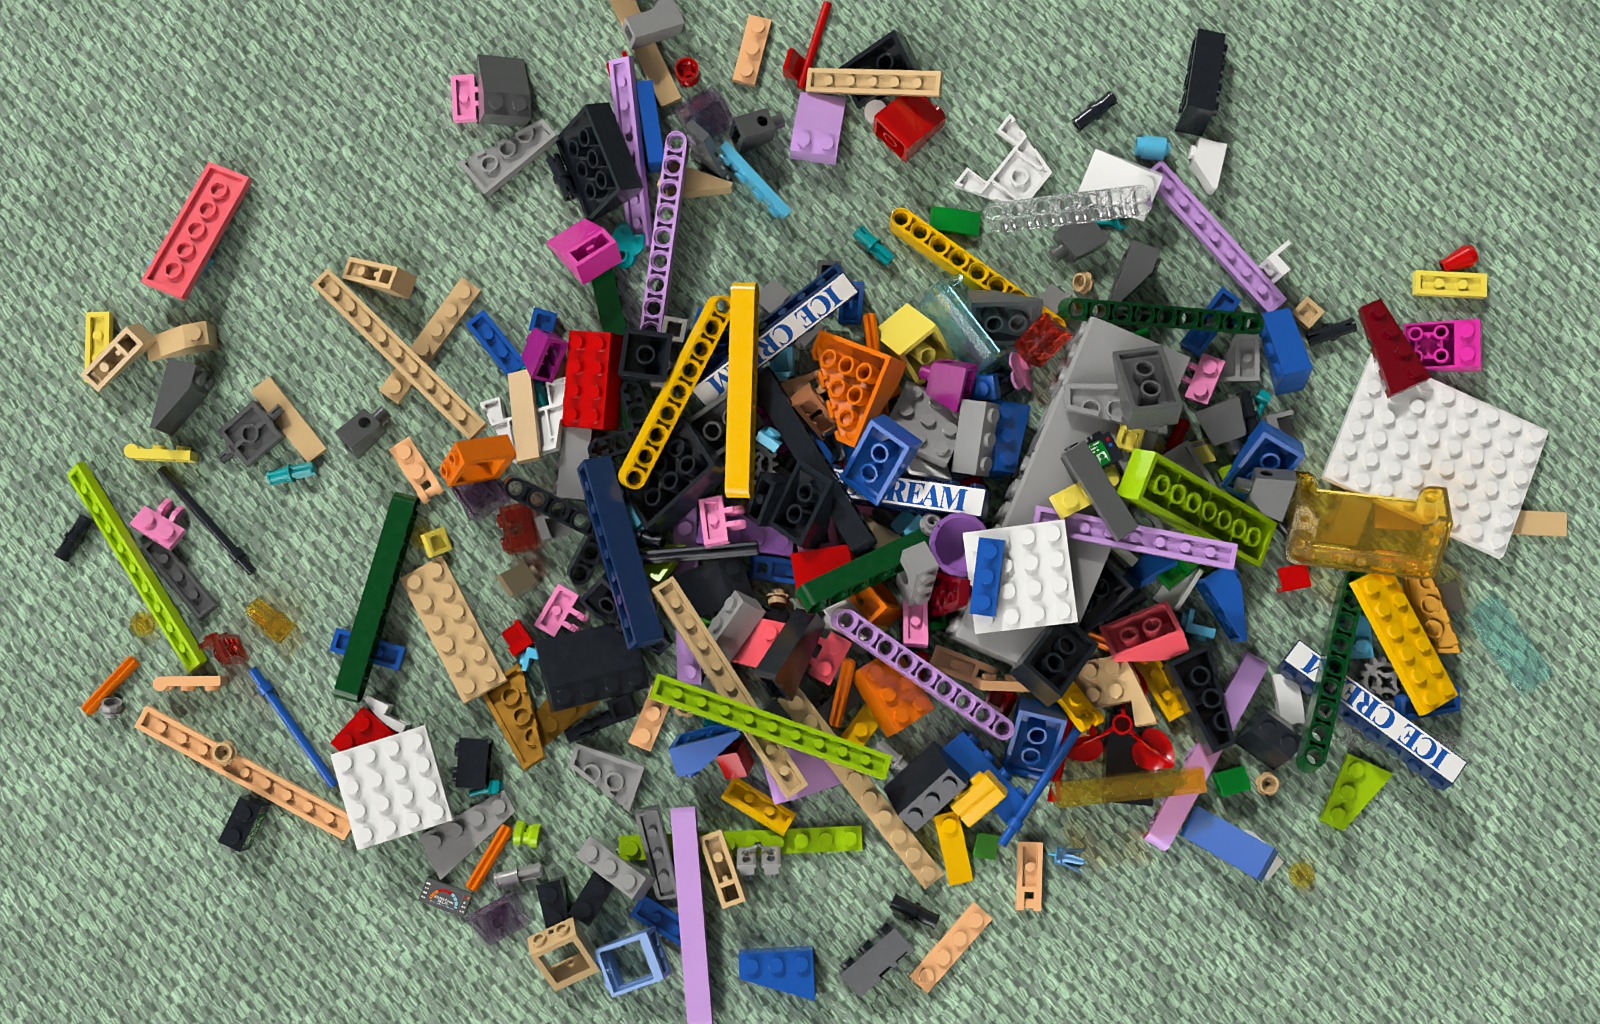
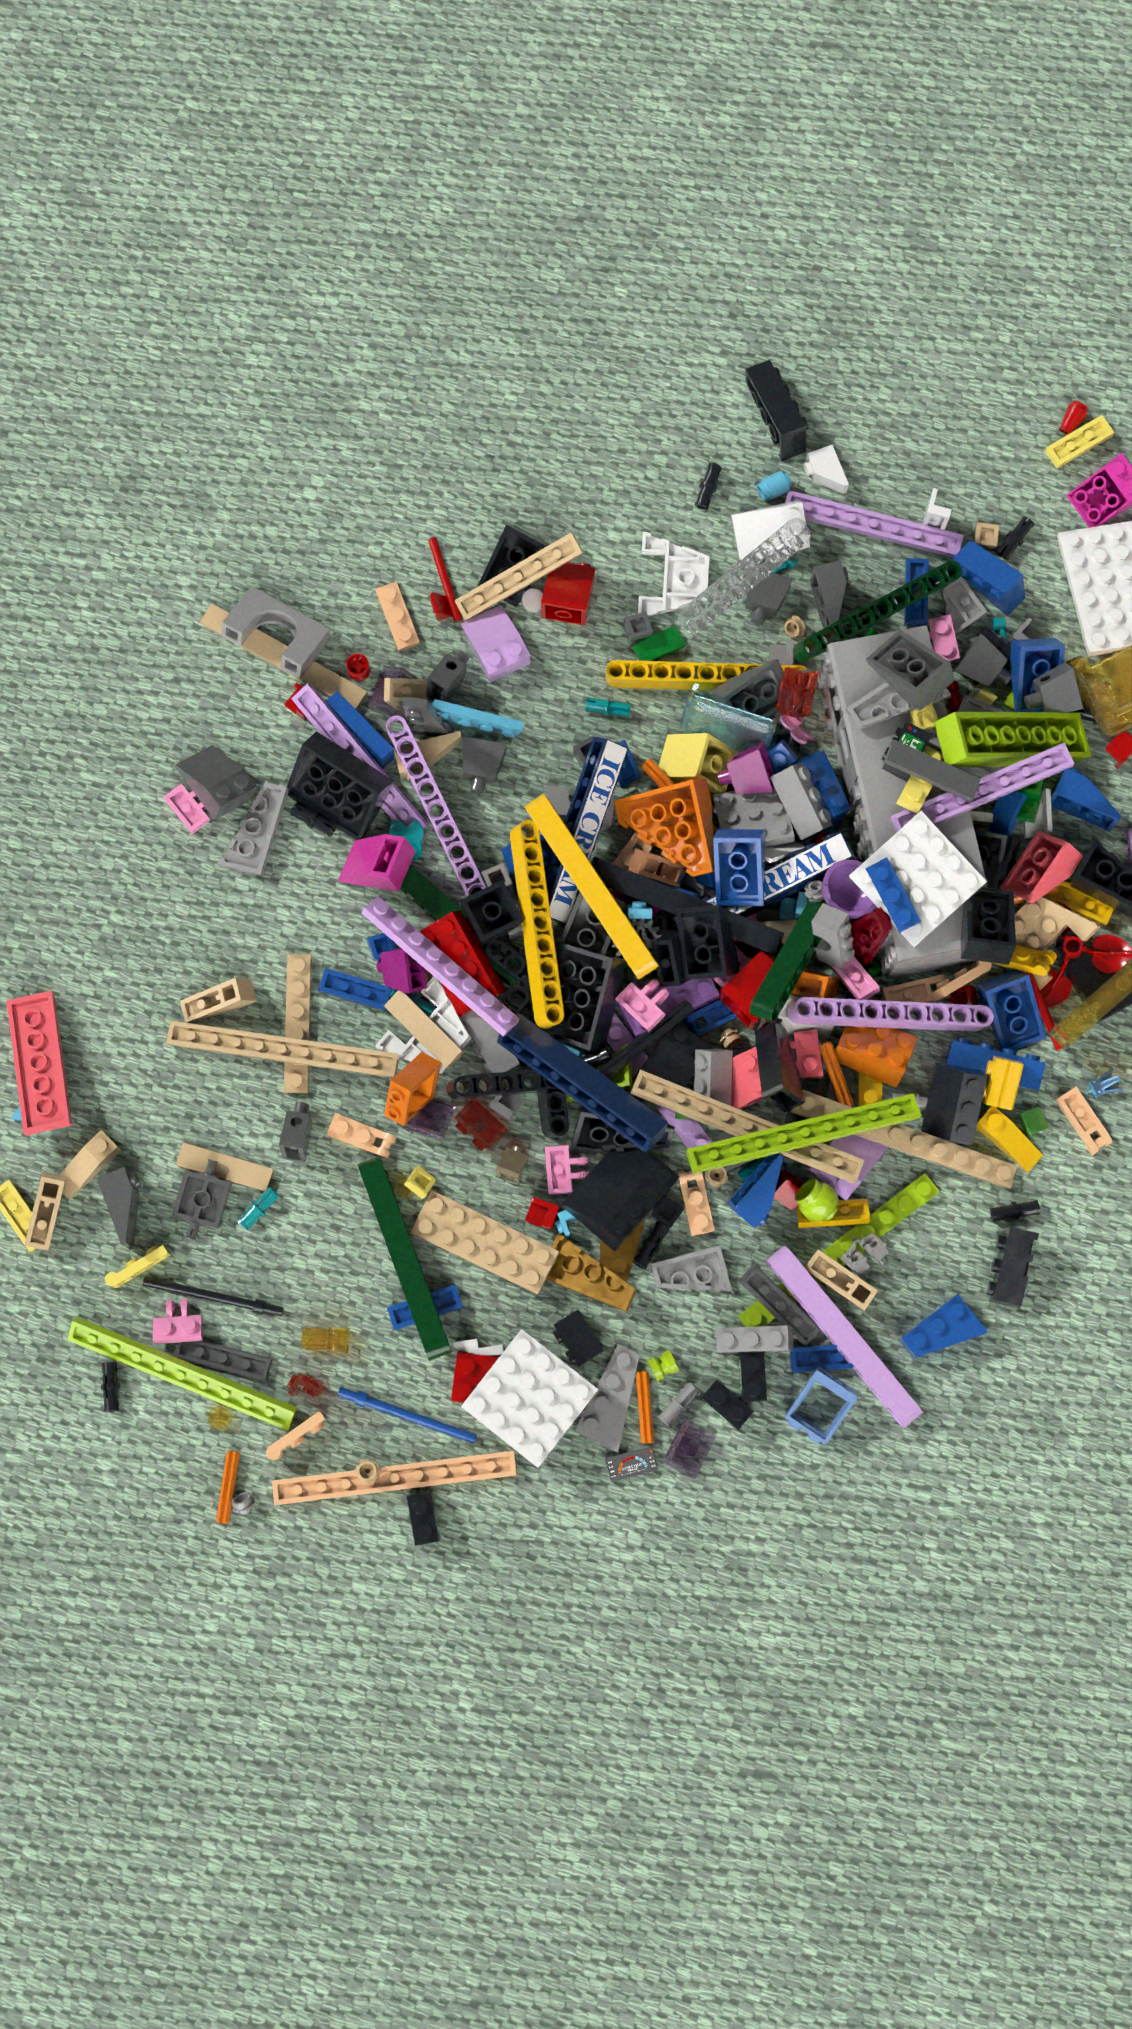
camera: 40 degrees left, 5 degrees down
(494, 787) = (608, 1347): teal hand -> none
(568, 970) = (776, 1446): tan window -> none
(569, 372) = (440, 966): none -> lavender plate
(710, 118) = (397, 688): none -> tan wing
(734, 222) = (482, 762): none -> dark grey torso
(748, 788) = (817, 1200): none -> lime piece
(784, 364) = (603, 848): medium azure bracket -> none
(946, 193) = (637, 627): none -> dark grey panel
(950, 947) = (1062, 1220): light nougat plate -> none
(1015, 823) = (1045, 1083): blue bar -> none
(1198, 632) = (1078, 840): medium azure bracket -> none
(1396, 357) = (1077, 523): dark red wing -> none

